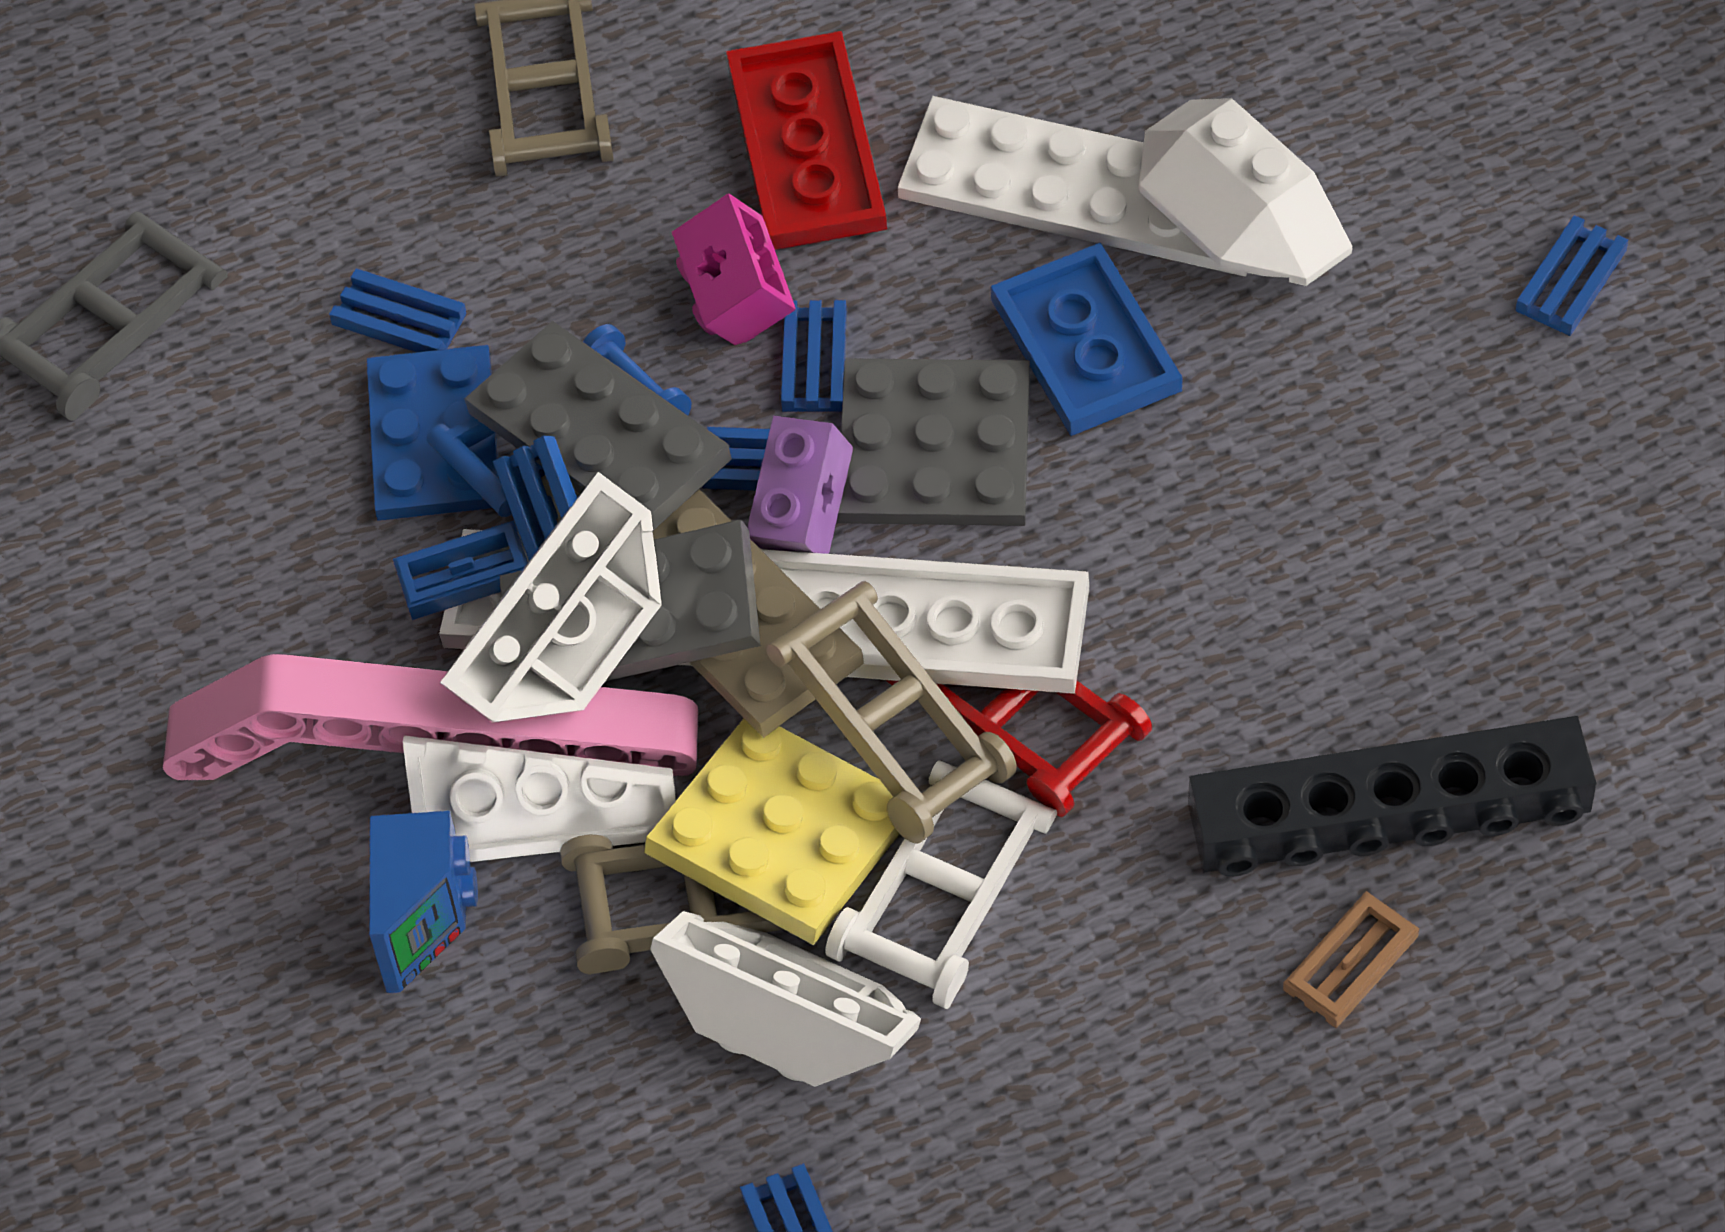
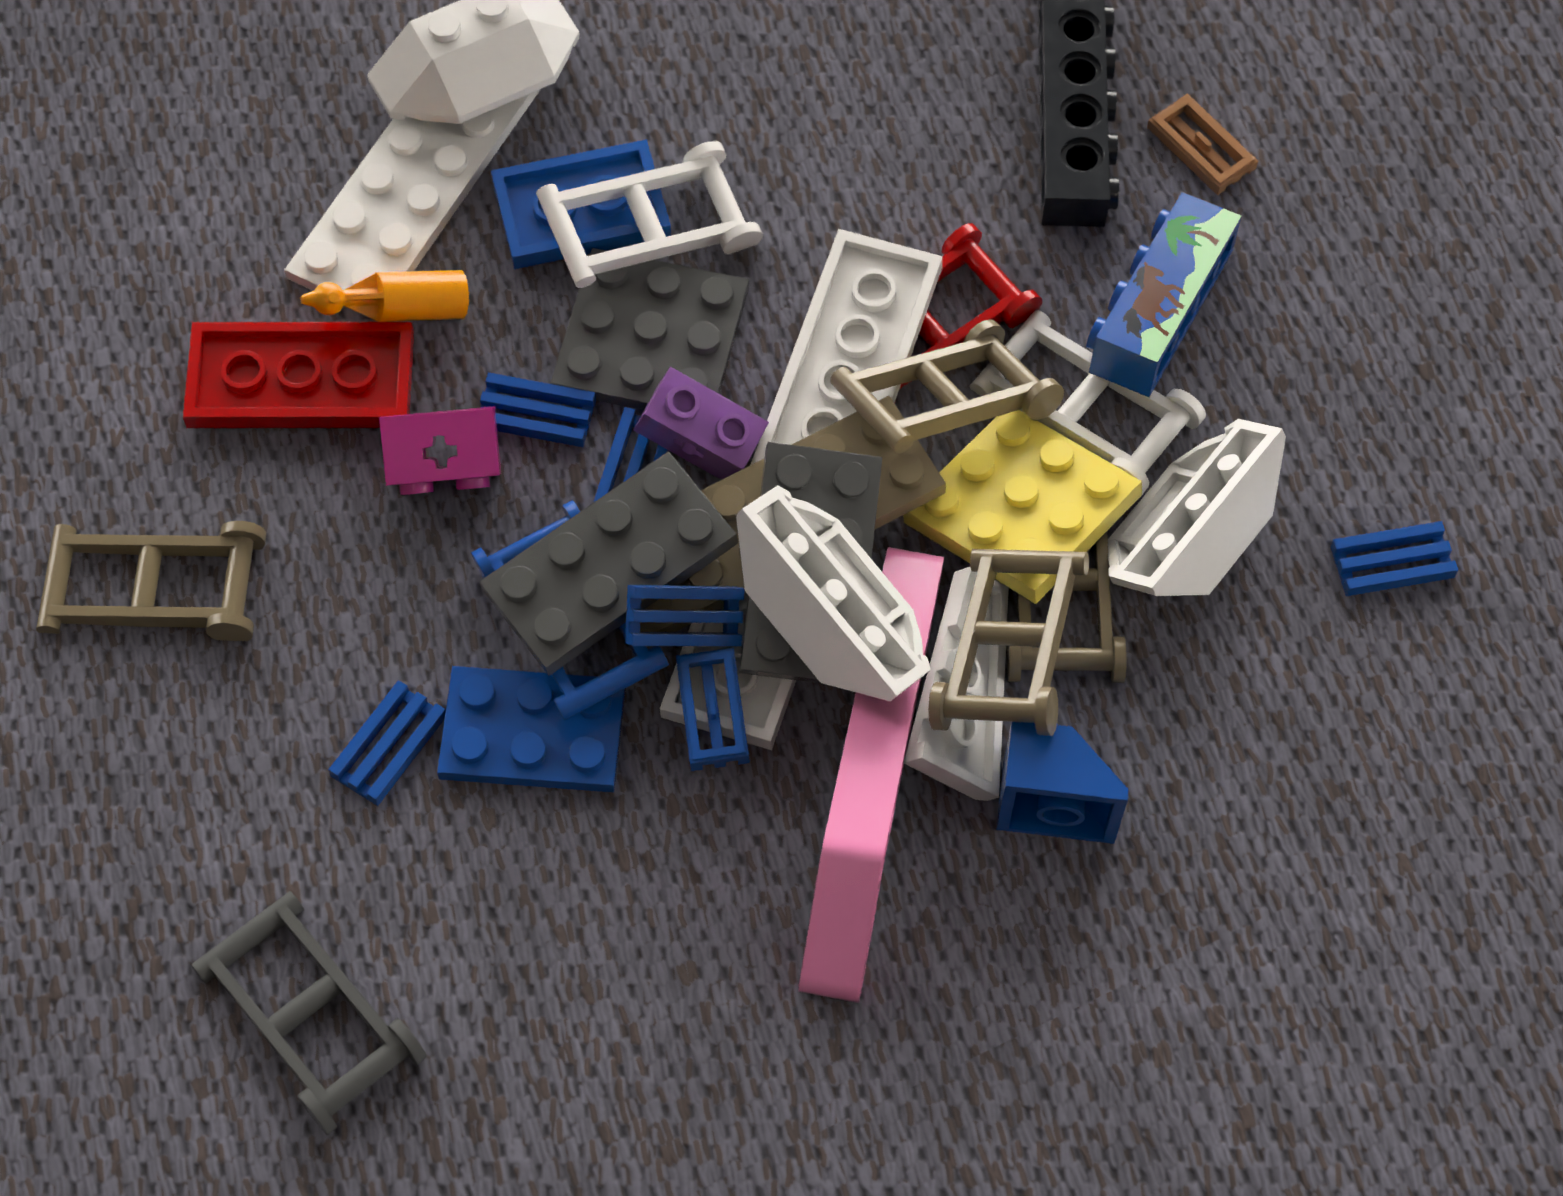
camera: 85 degrees left, 5 degrees up
(467, 750) = (950, 700): none -> dark tan piece
(908, 191) = (397, 296): none -> light orange wheel
(1079, 489) = (698, 163): none -> white piece
(1093, 927) = (1163, 294): none -> blue brick

